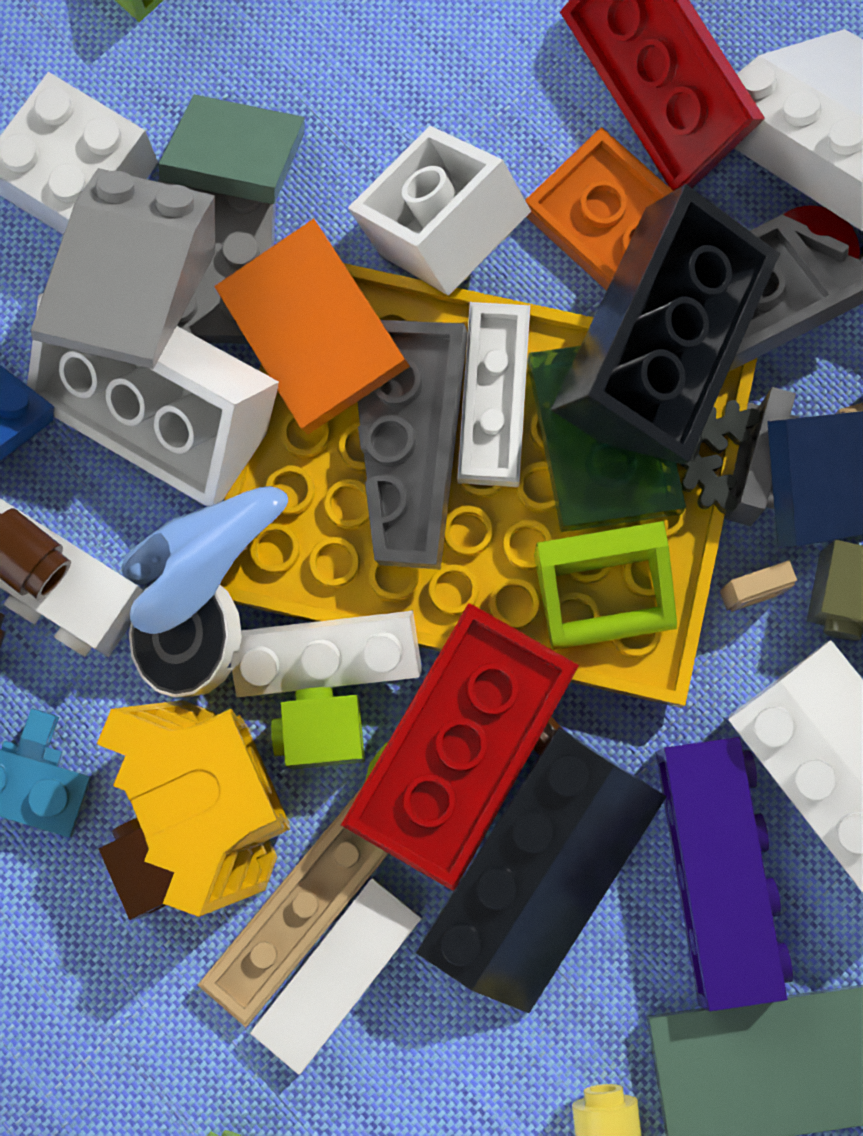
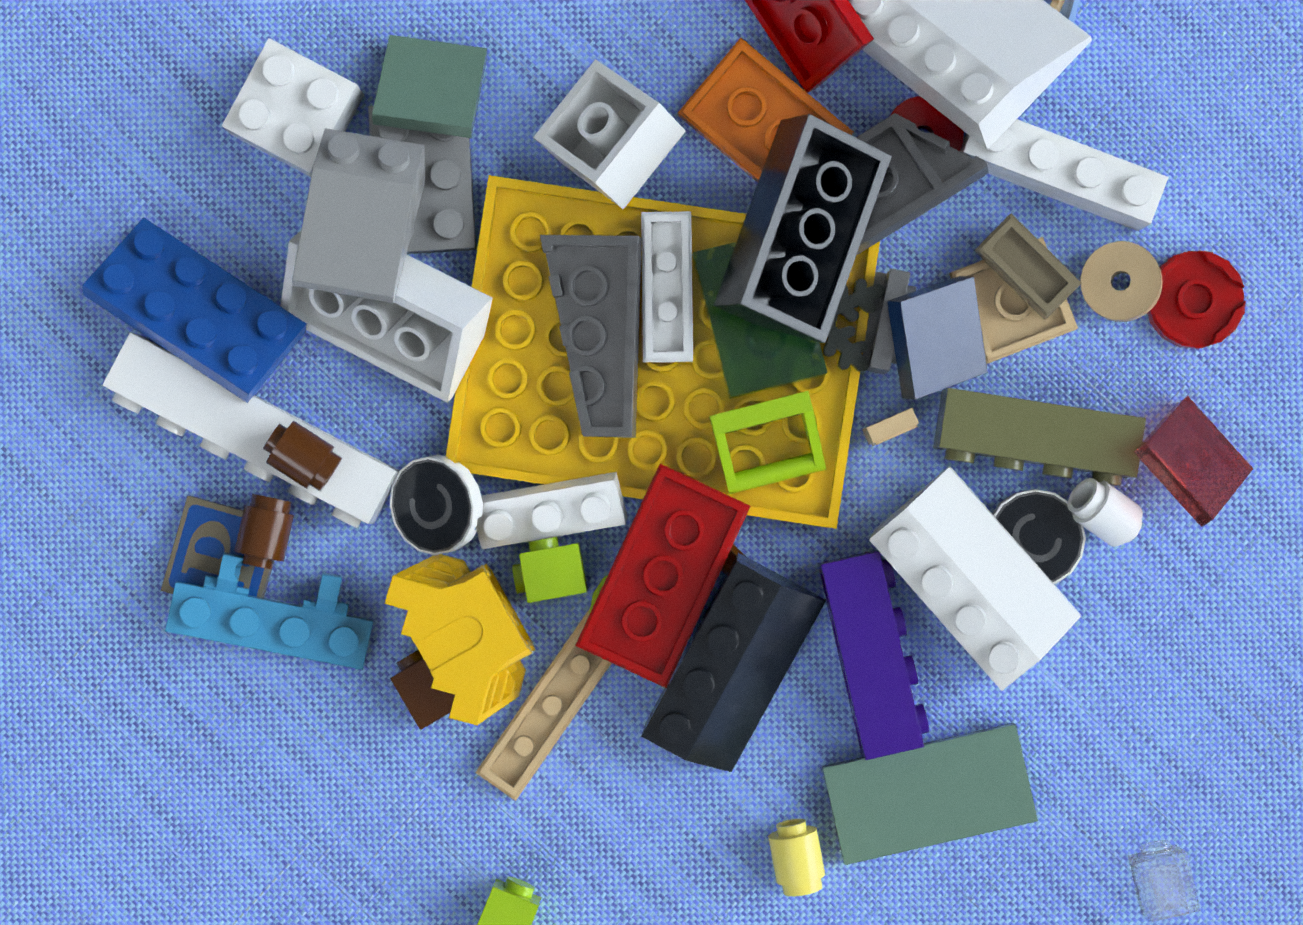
camera: 10 degrees left, 10 degrees up
(194, 556) = (446, 439): light blue animal -> none
(311, 326) = (513, 244): orange tile -> none
(335, 976) = (581, 756): white tile -> none

